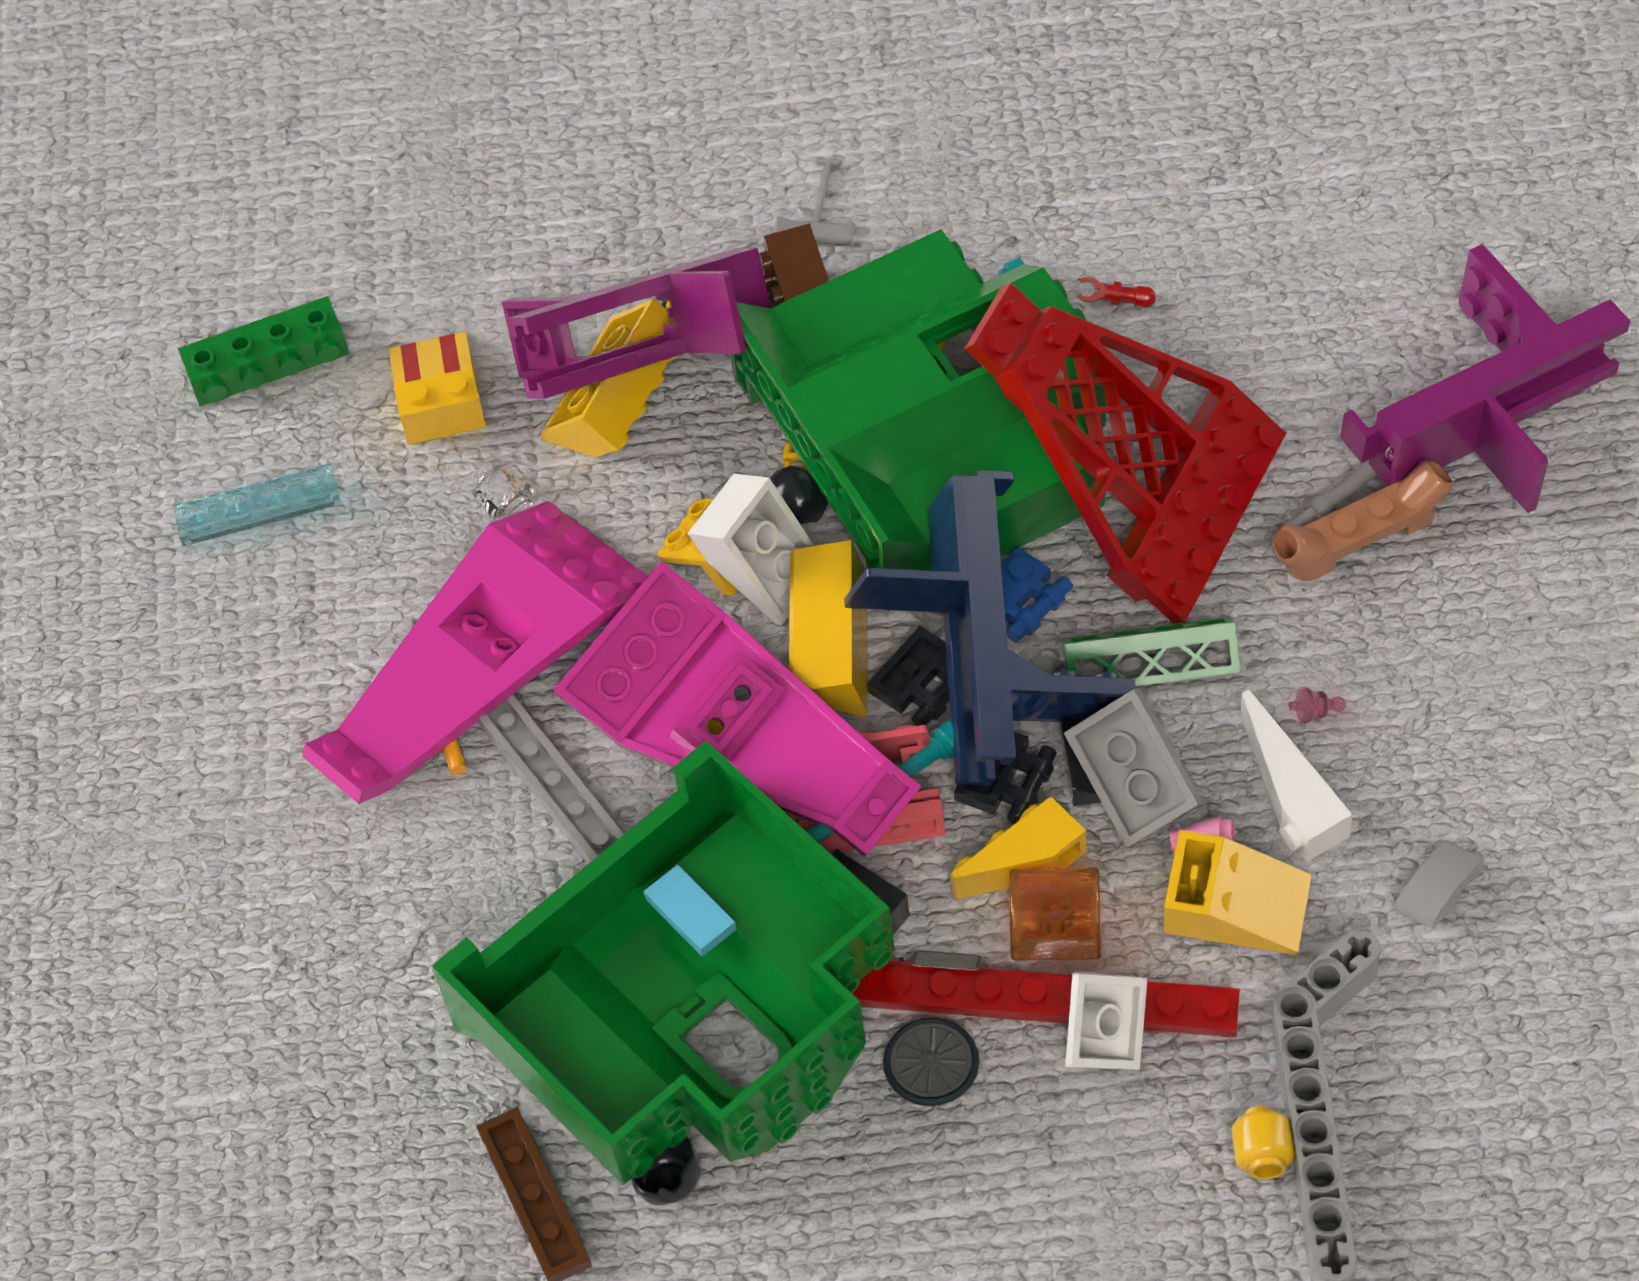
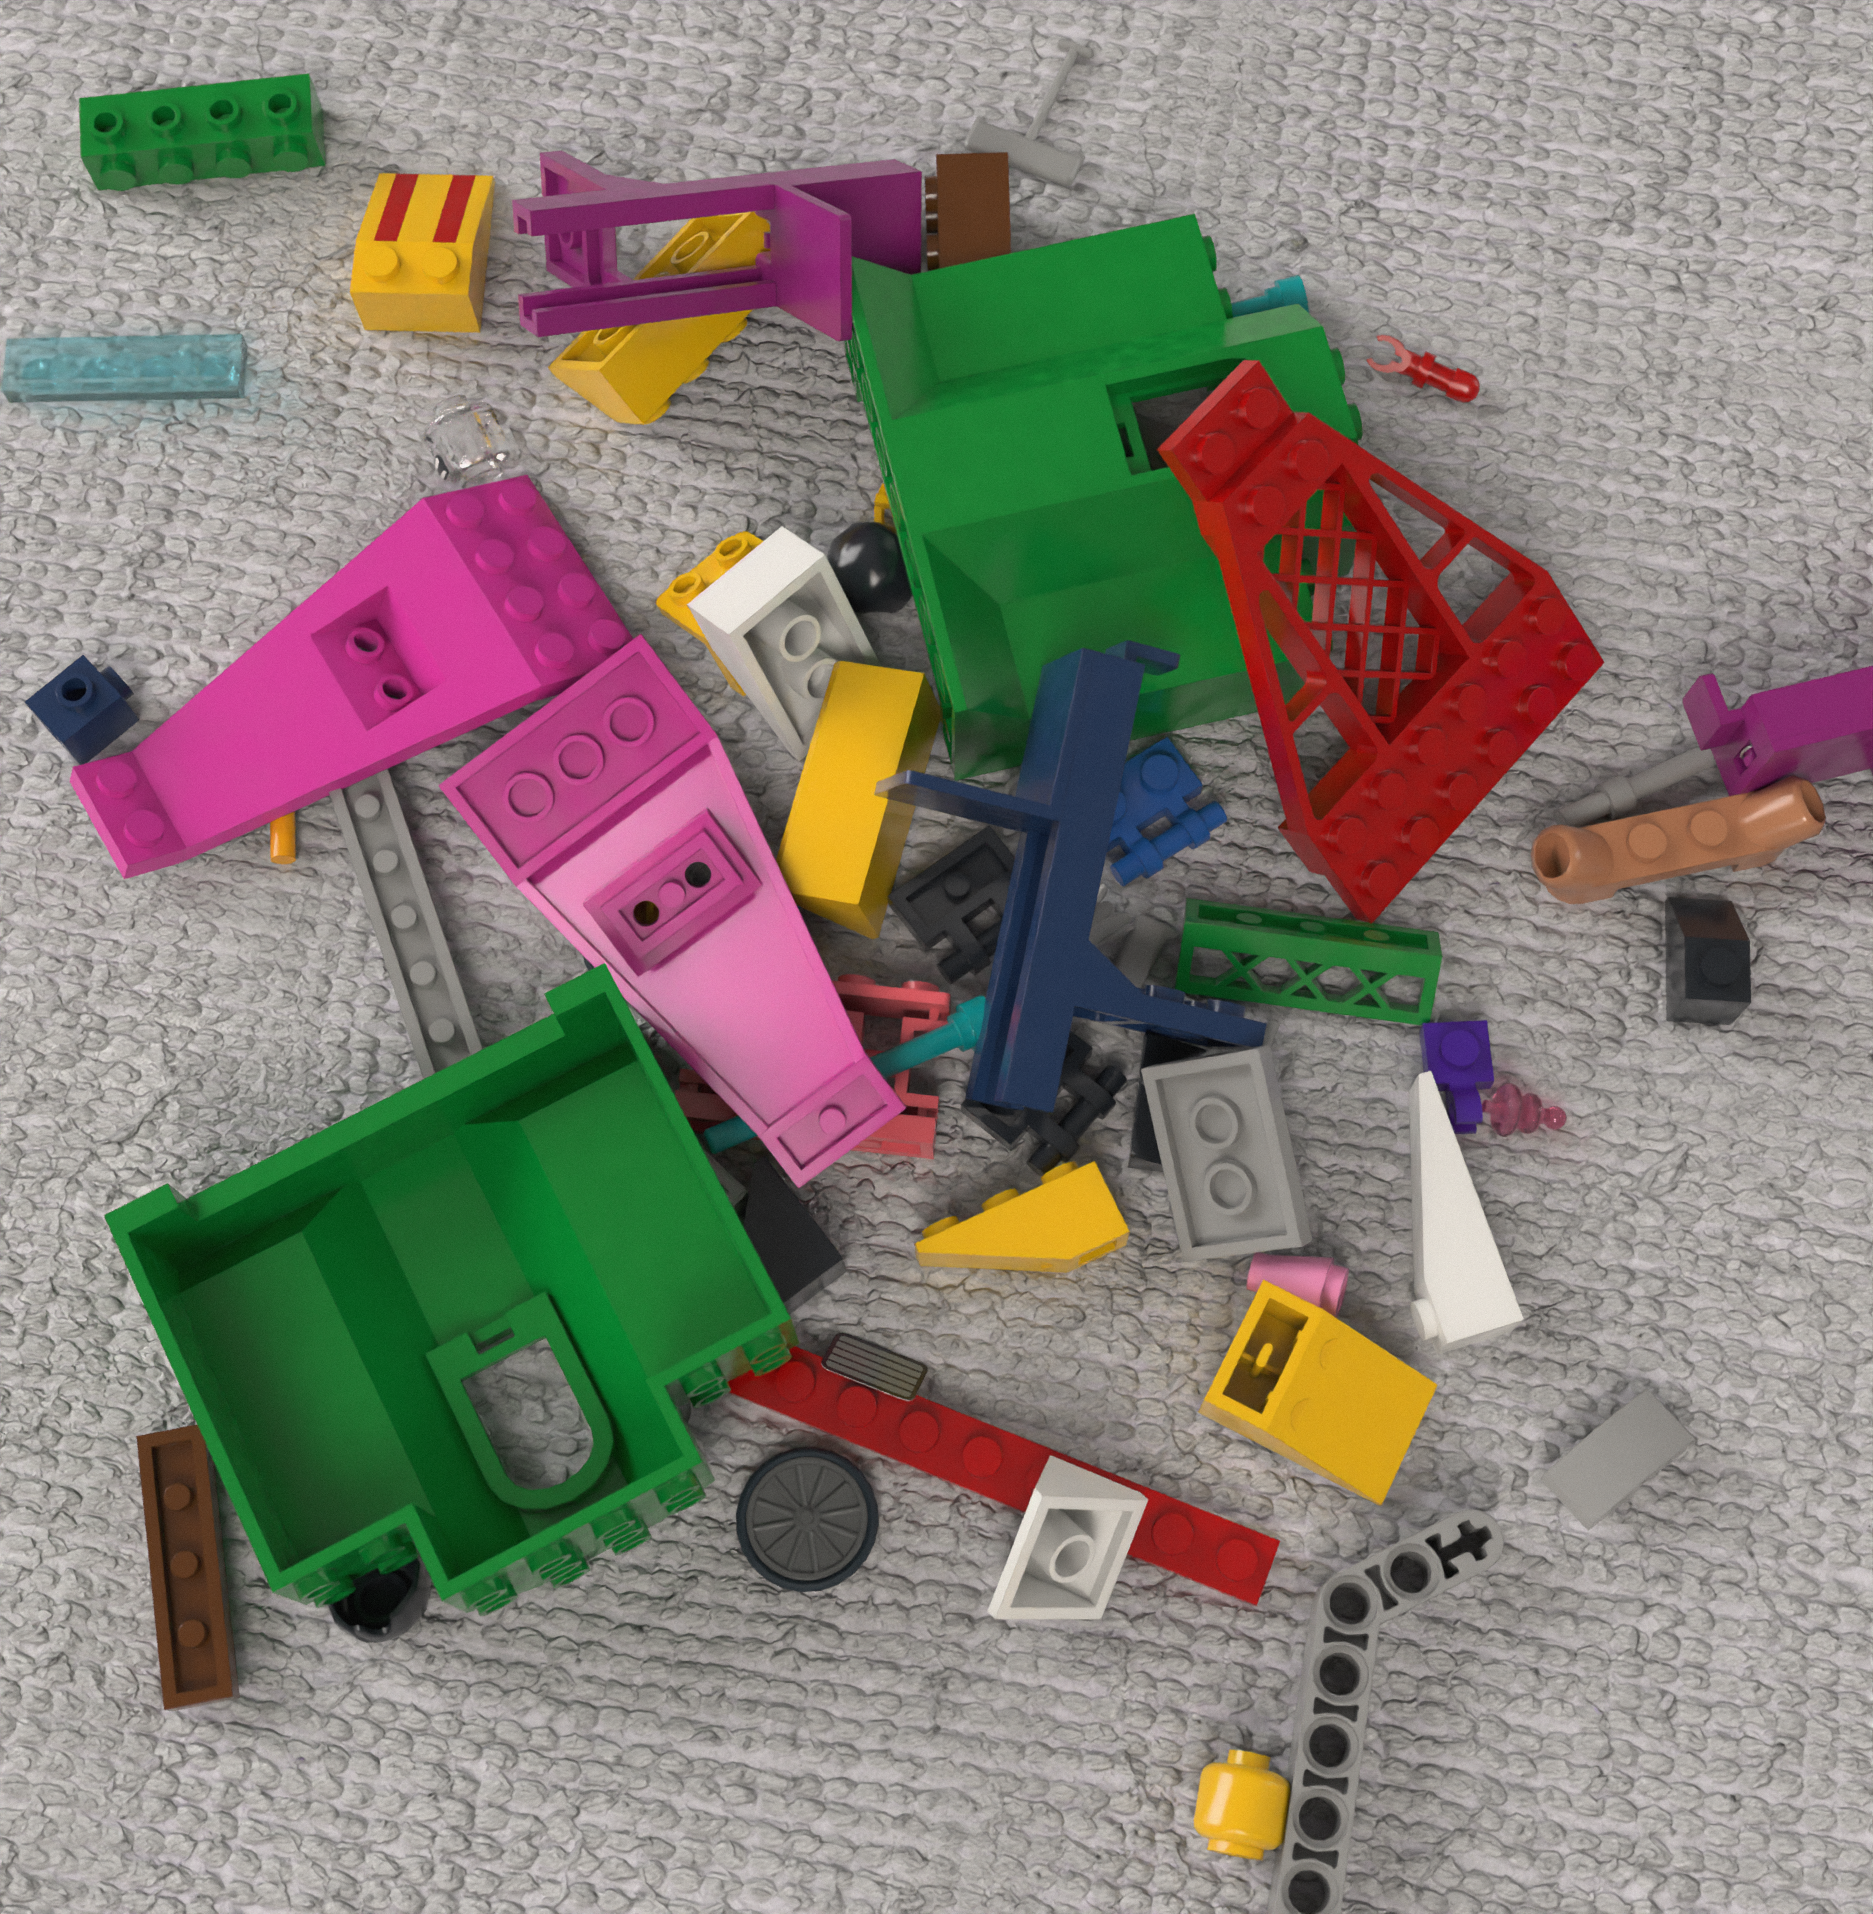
camera: 10 degrees right, 15 degrees up
(297, 712) = (84, 708): none -> dark blue brick
(690, 910) = (522, 1201): medium azure tile -> none
(1066, 937) = (1024, 1307): clear orange brick -> none
(1270, 688) = (1460, 1066): none -> dark purple plate
(1405, 590) = (1705, 961): none -> black slope

